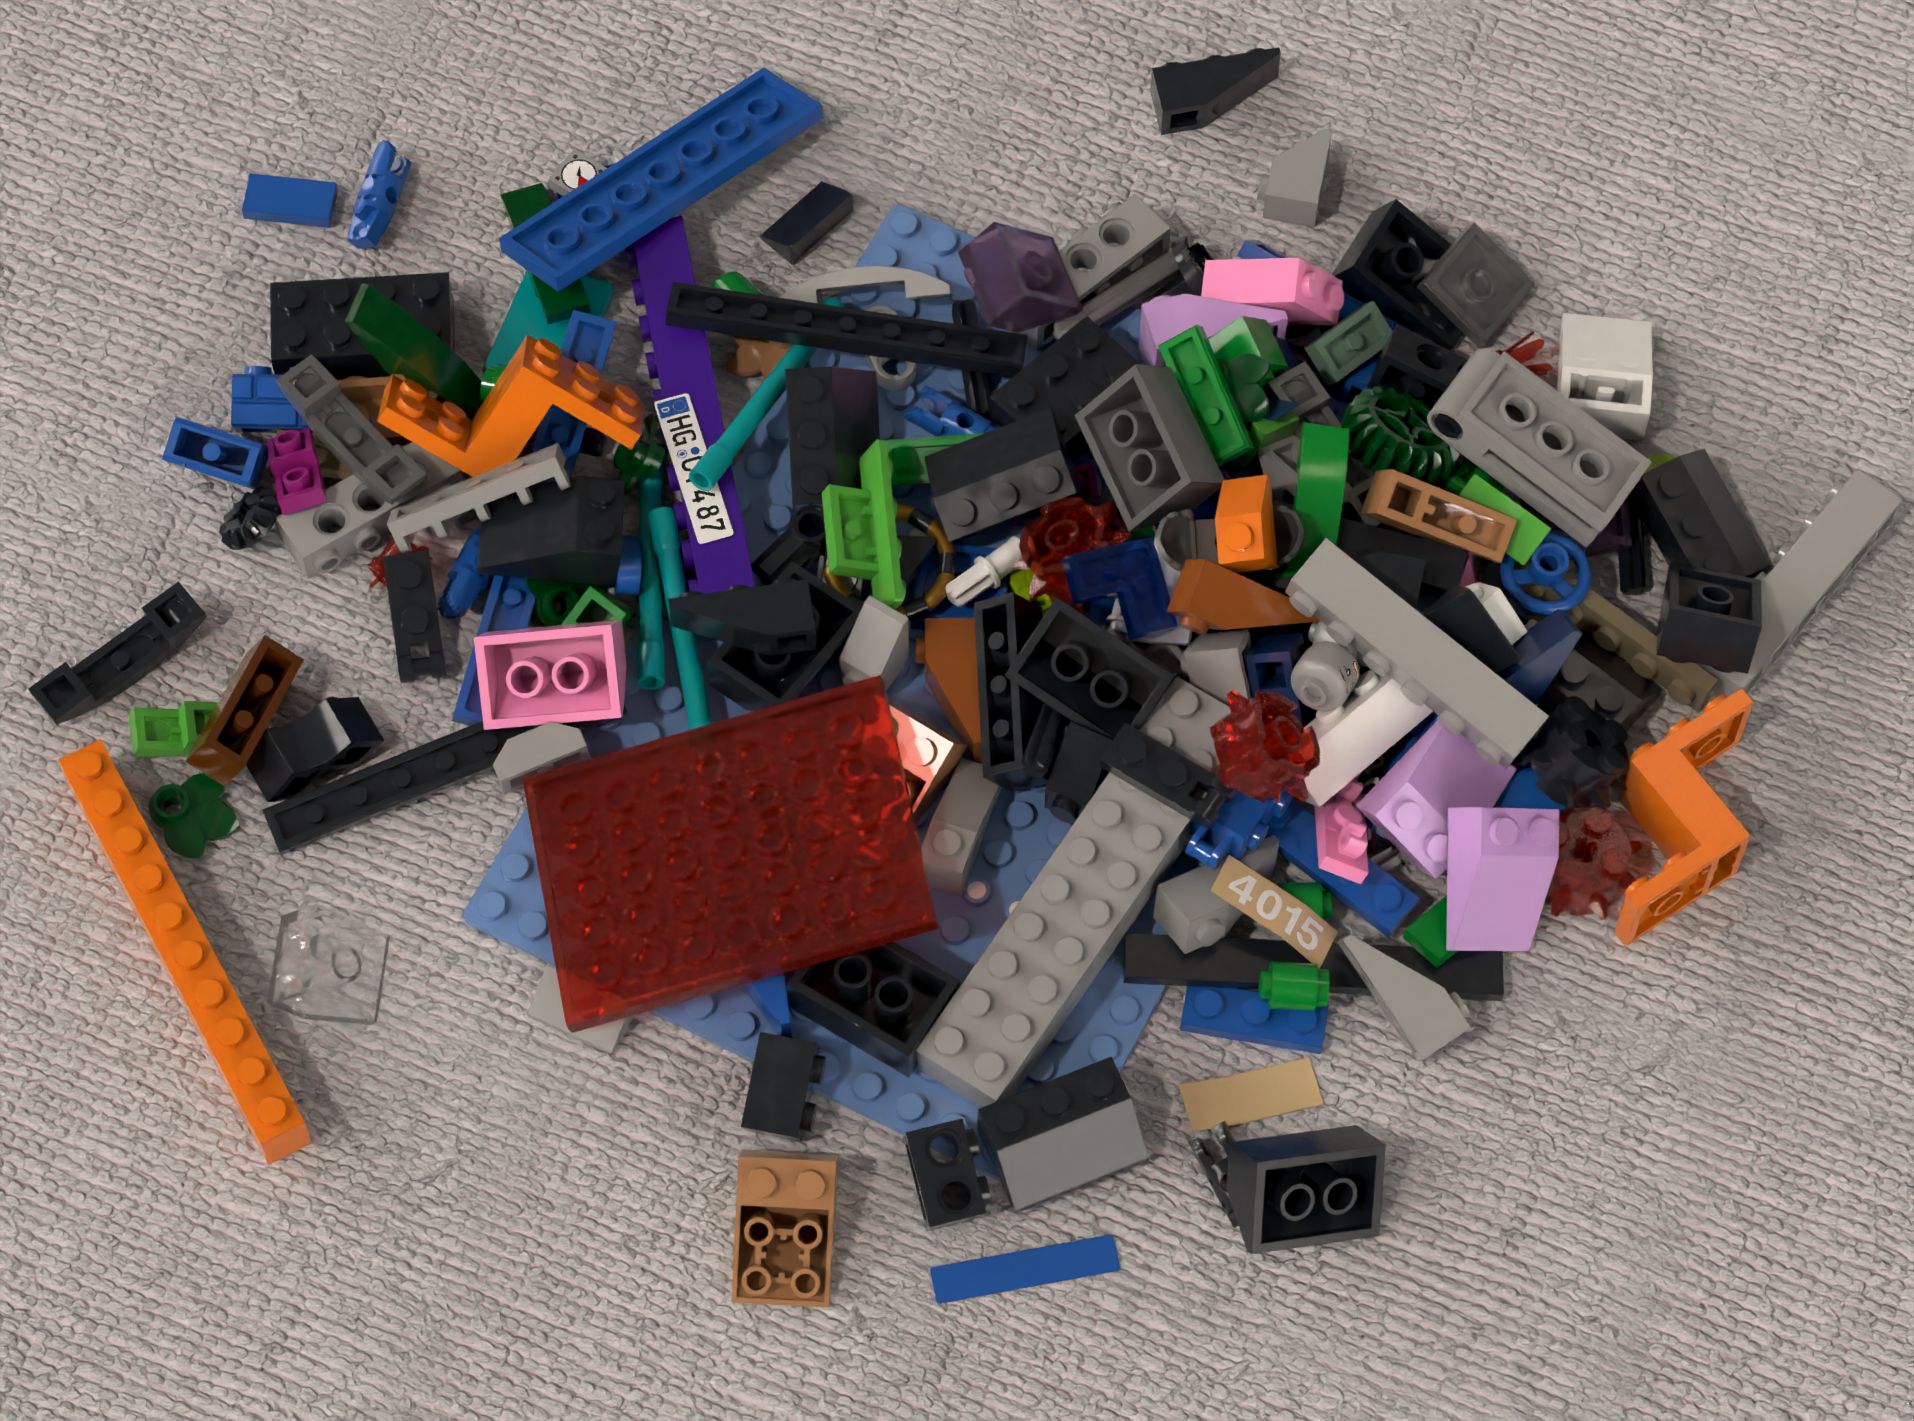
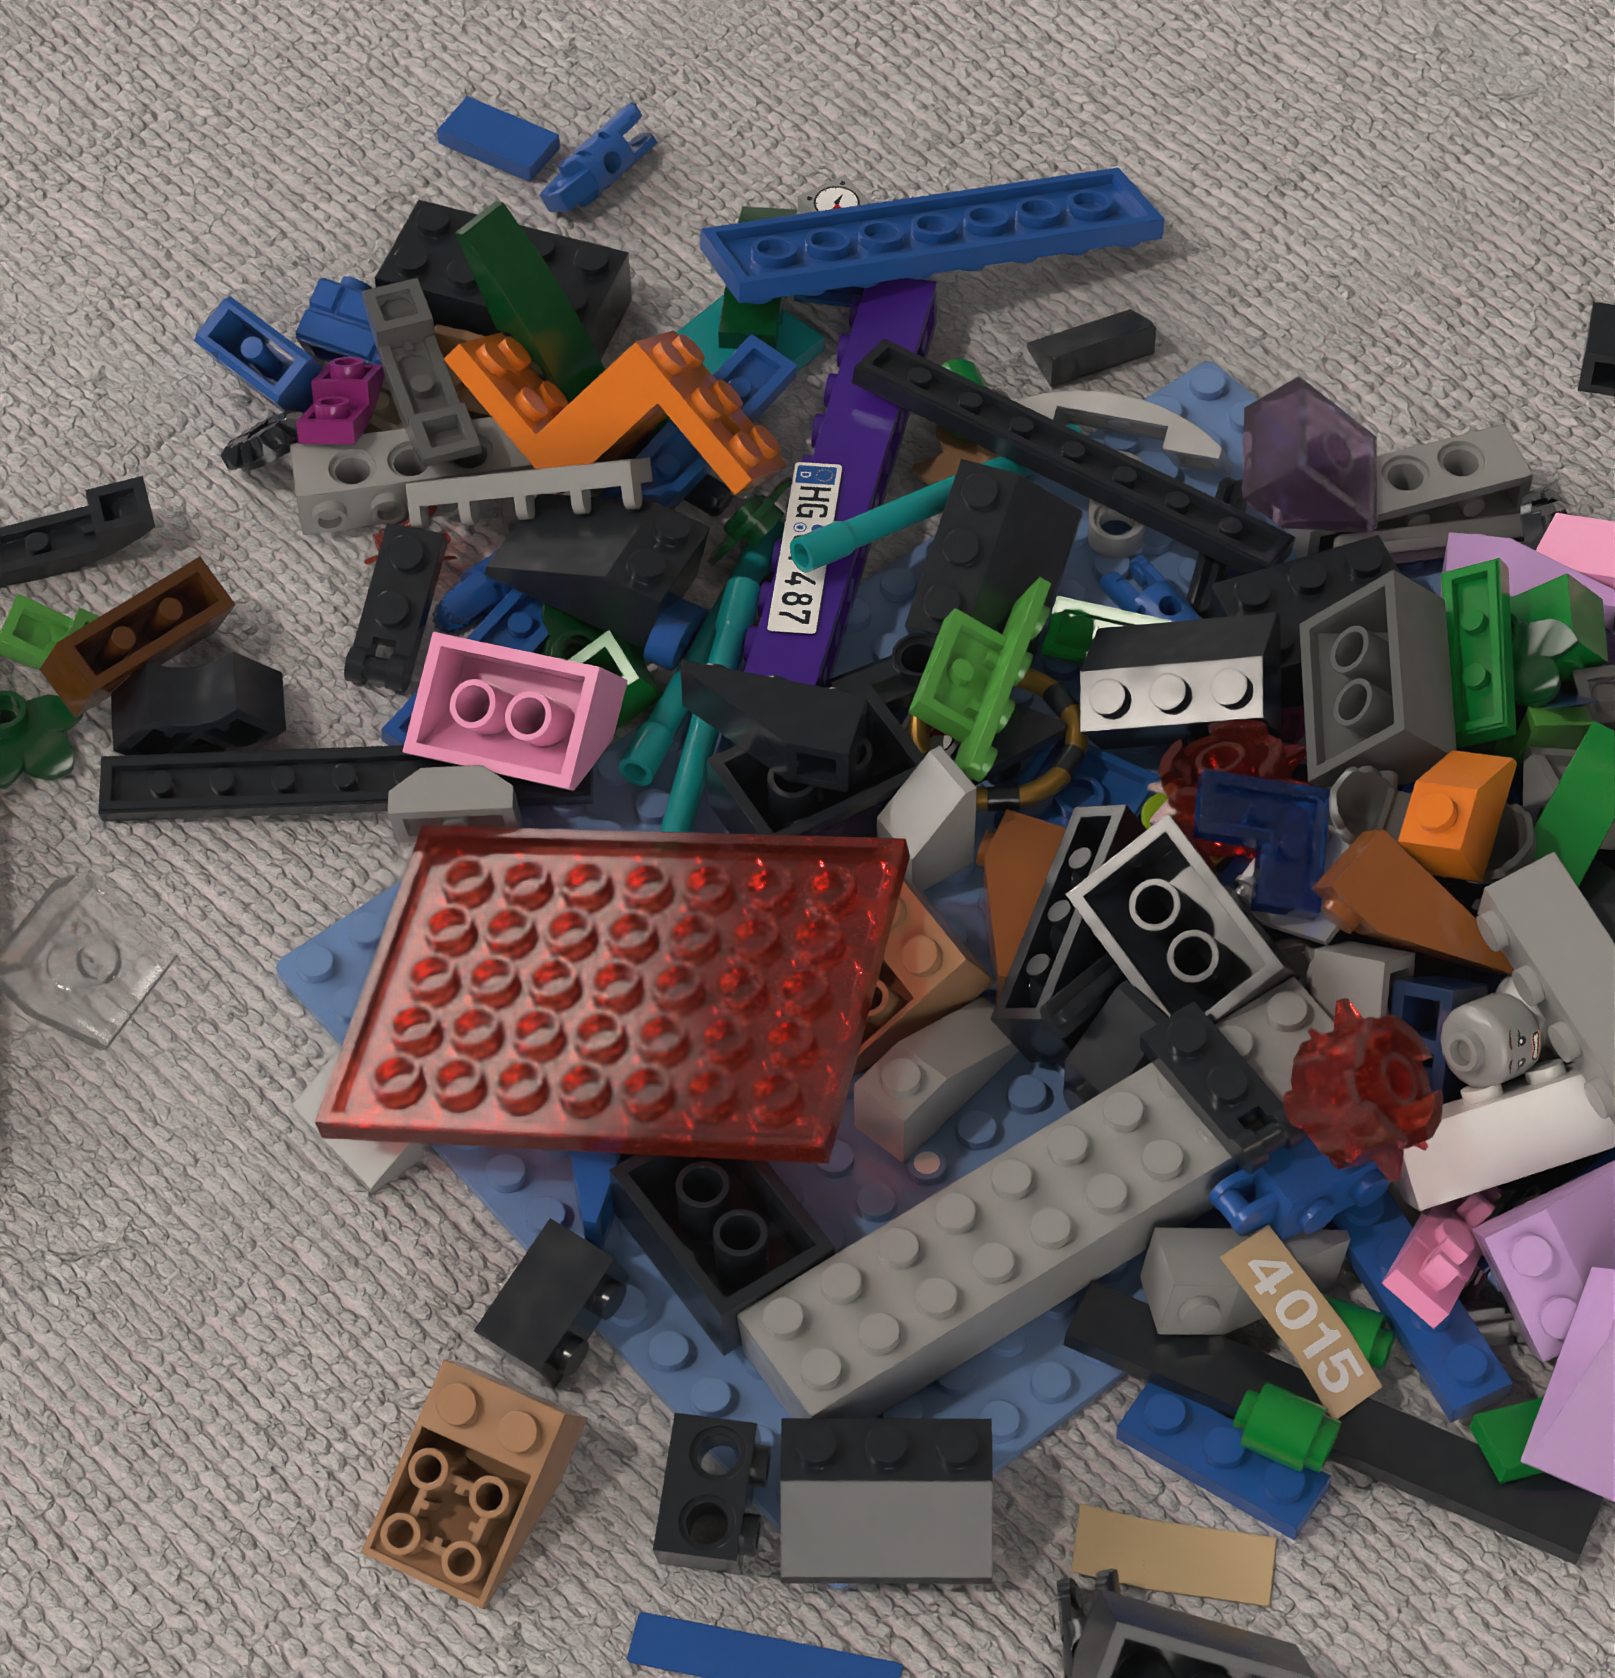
camera: 25 degrees right, 10 degrees down
(984, 574) = (1106, 787): white axle -> none
(1414, 1004) = (1443, 1510): light grey slope -> none

